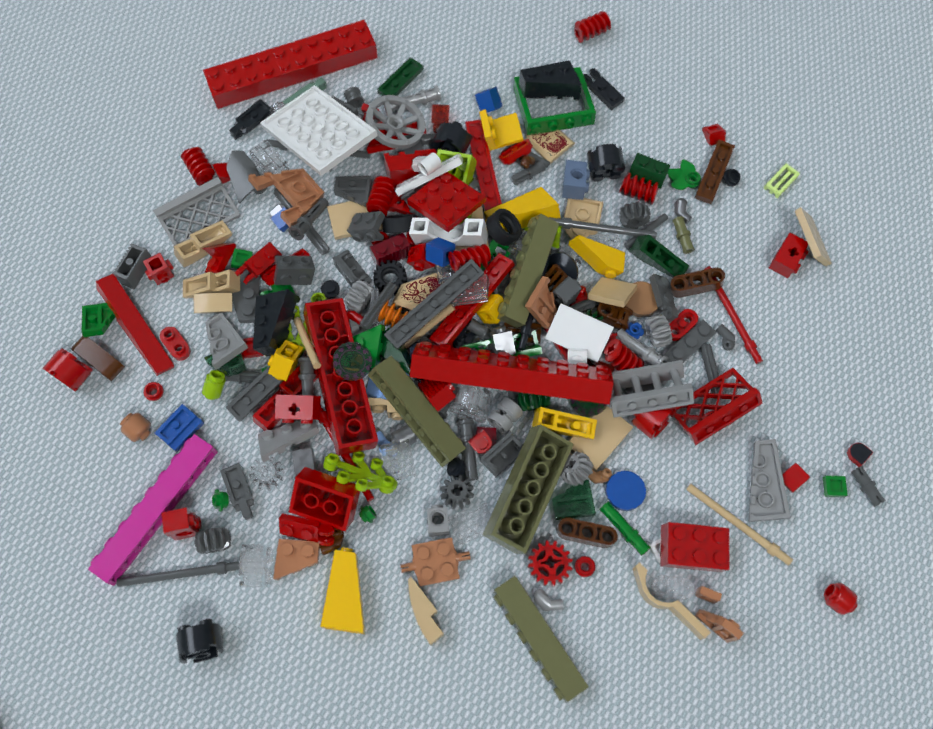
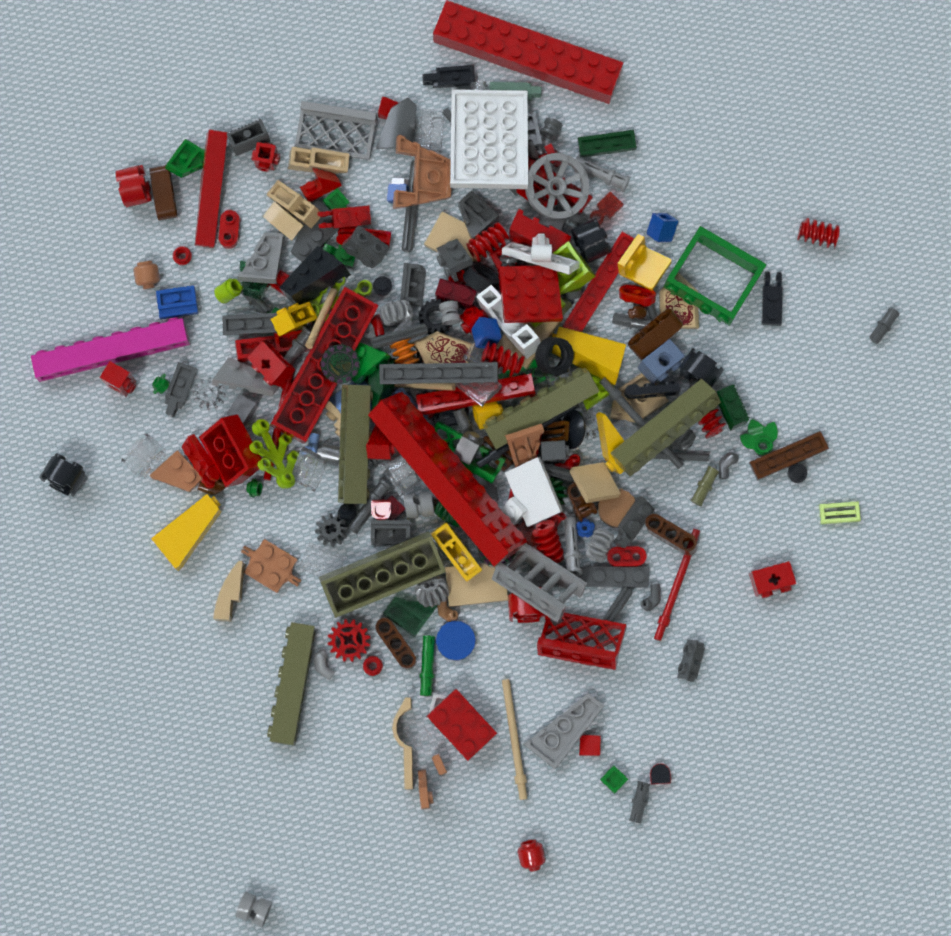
camera: 45 degrees right, 10 degrees up
(198, 165) = (370, 86): red piece -> none
(212, 540) = (130, 410): dark grey gear -> none
(219, 568) = (120, 435): dark grey bar -> none
(305, 222) = (408, 213): dark grey pin -> none
(399, 262) = (449, 313): none -> light grey wheel
(437, 529) = (299, 547): light grey brick -> none
(550, 80) = (720, 258): black wedge -> none
(553, 165) = (655, 334): none -> reddish brown beam
(587, 202) = (651, 390): none -> black hinge
(627, 211) = (665, 427): none -> olive brick
(658, 256) = (664, 488): dark green slope -> none
(687, 49) = (884, 325): none -> dark grey axle
(714, 133) = (826, 422): red slope -> none
(794, 357) = (692, 651): none -> dark grey hinge
(813, 237) = (805, 582): tan tile -> none

